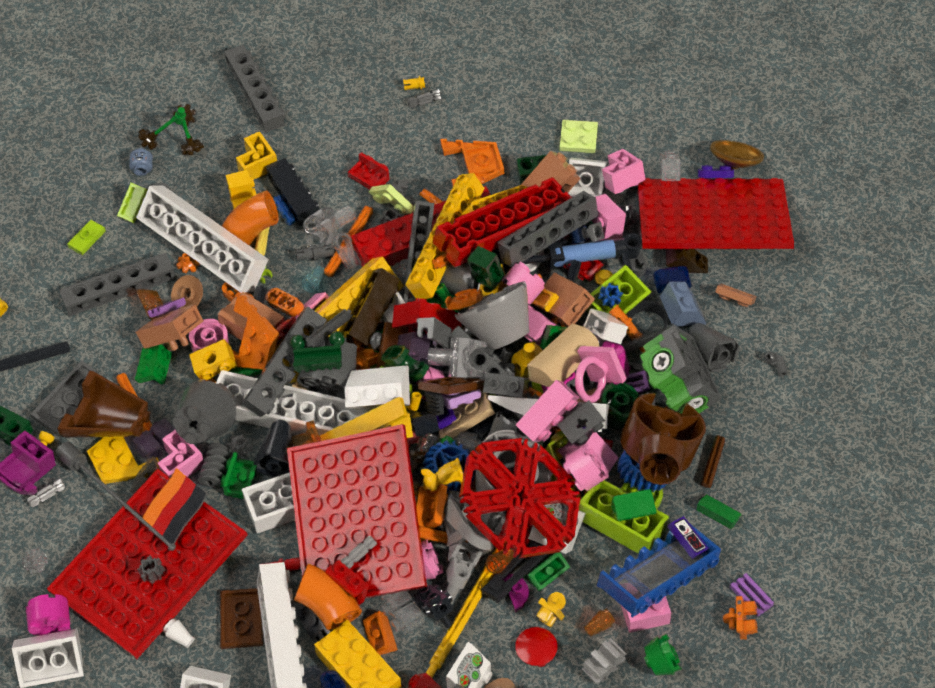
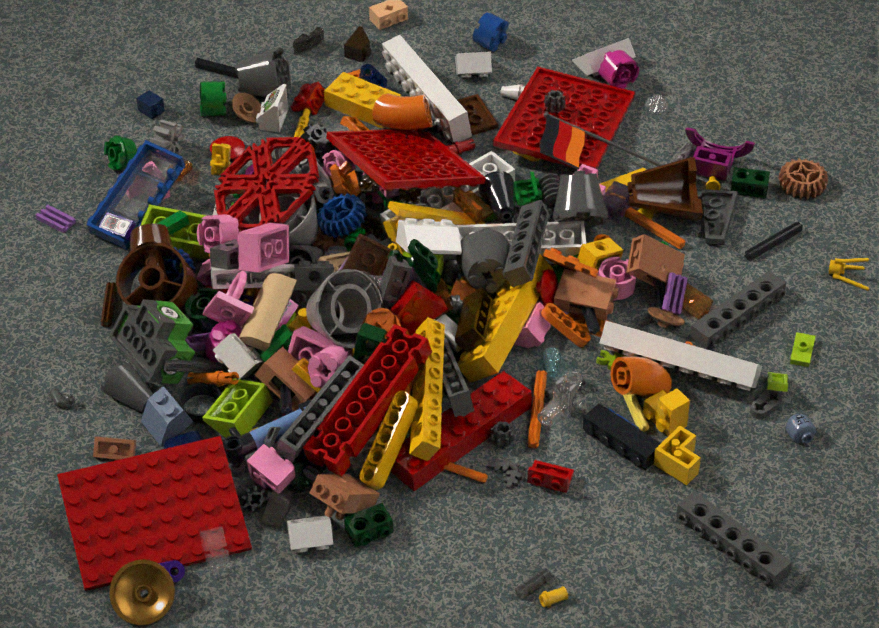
camera: 160 degrees right, 10 degrees down
(149, 468) = (606, 172): clear smoke slope -> none
(180, 117) = (759, 459): dark brown plant -> none
(317, 357) = (494, 232): dark green gear -> none
(329, 327) = (496, 270): dark grey axle -> none
(347, 253) = (535, 382): clear piece -> none
(348, 581) = (391, 119): red bracket -> none
(357, 553) = (390, 137): light grey axle -> none
(389, 194) = (511, 441): yellowish green plate -> none
(446, 474) = (336, 192): yellow animal -> none
(480, 158) = (436, 525): orange wing -> none
(578, 136) = (335, 584): yellowish green plate -> none
(610, 300) = (240, 384): blue gear -> none
(623, 171) = (264, 535): bright pink brick -> none
(718, 511) = (96, 267): green slope -> none
(739, 618) = (59, 196): orange hips -> none

